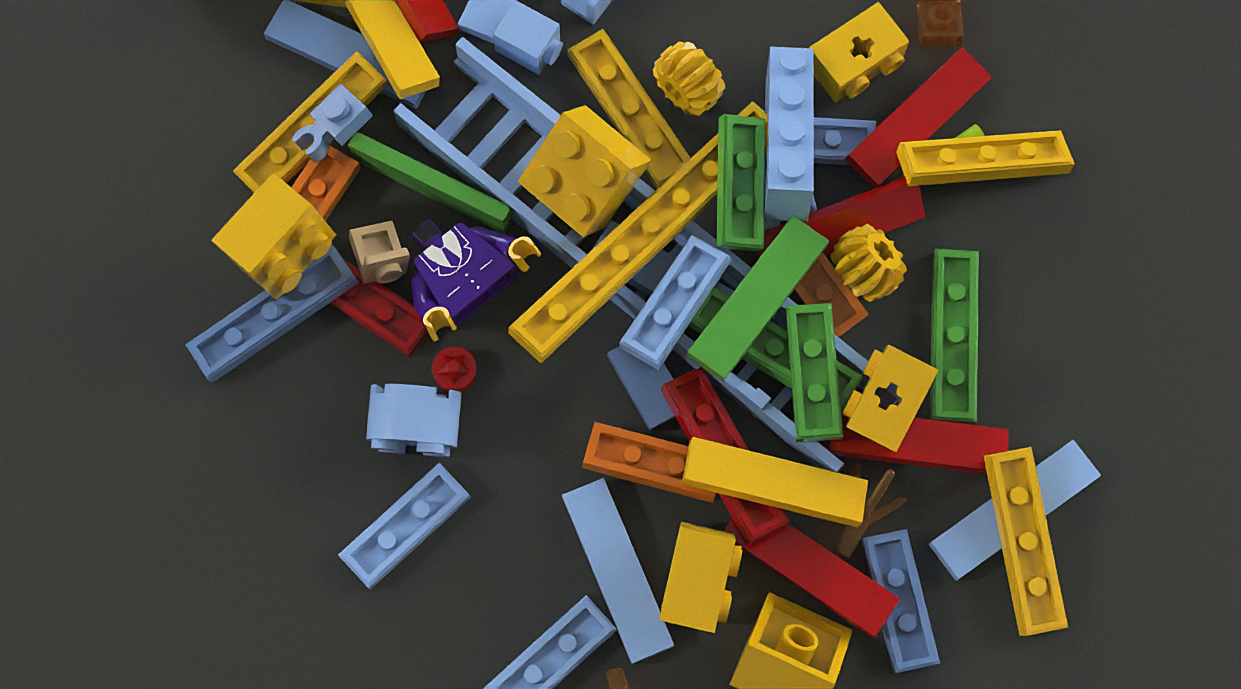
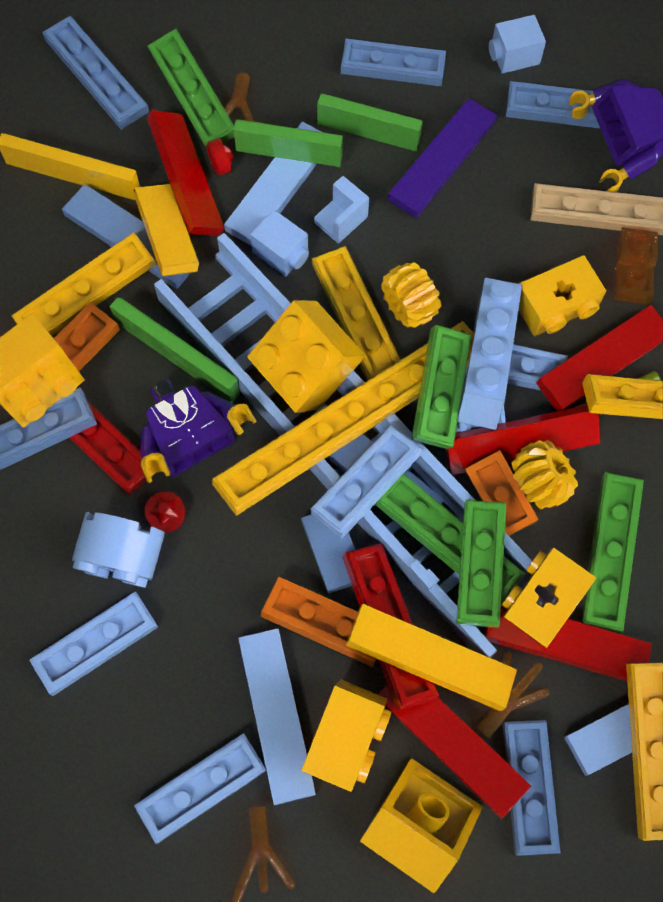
camera: 10 degrees right, 5 degrees down
(336, 118) = (102, 284): medium blue plate -> none
(379, 252) = (119, 401): tan bracket -> none
(757, 298) = (440, 490): bright green tile -> none

